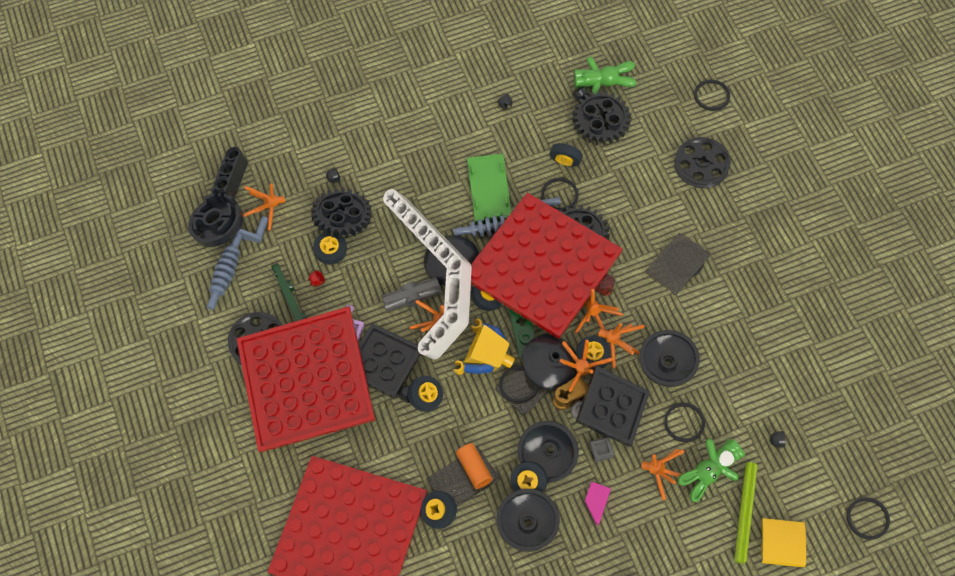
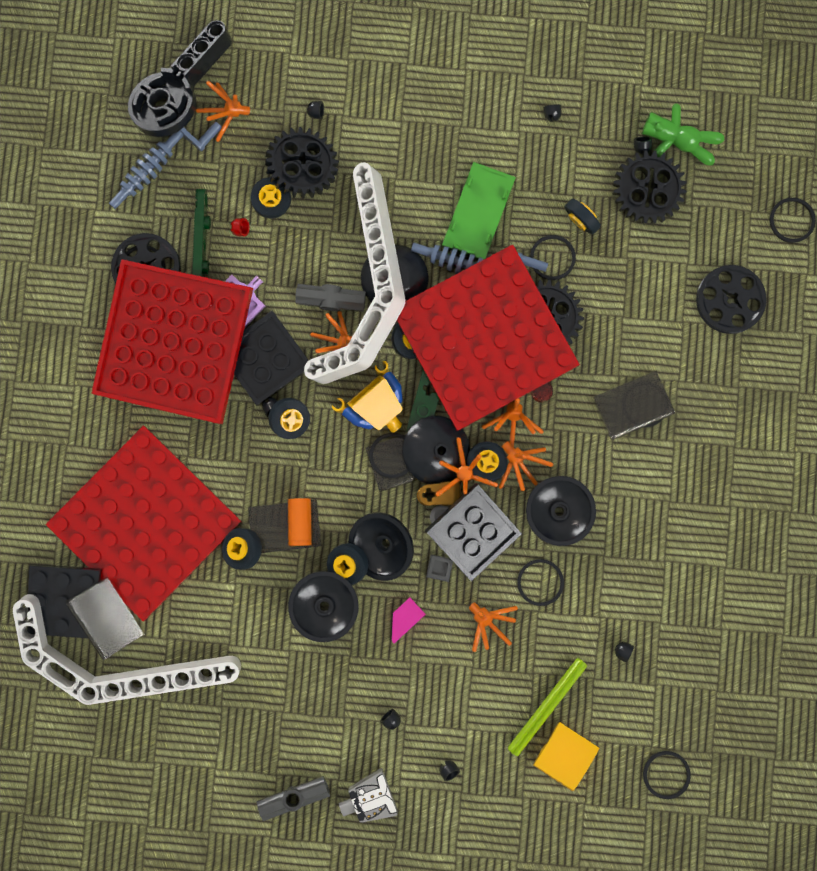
camera: 25 degrees right, 20 degrees up
(709, 470) = (535, 648): bright green animal -> none

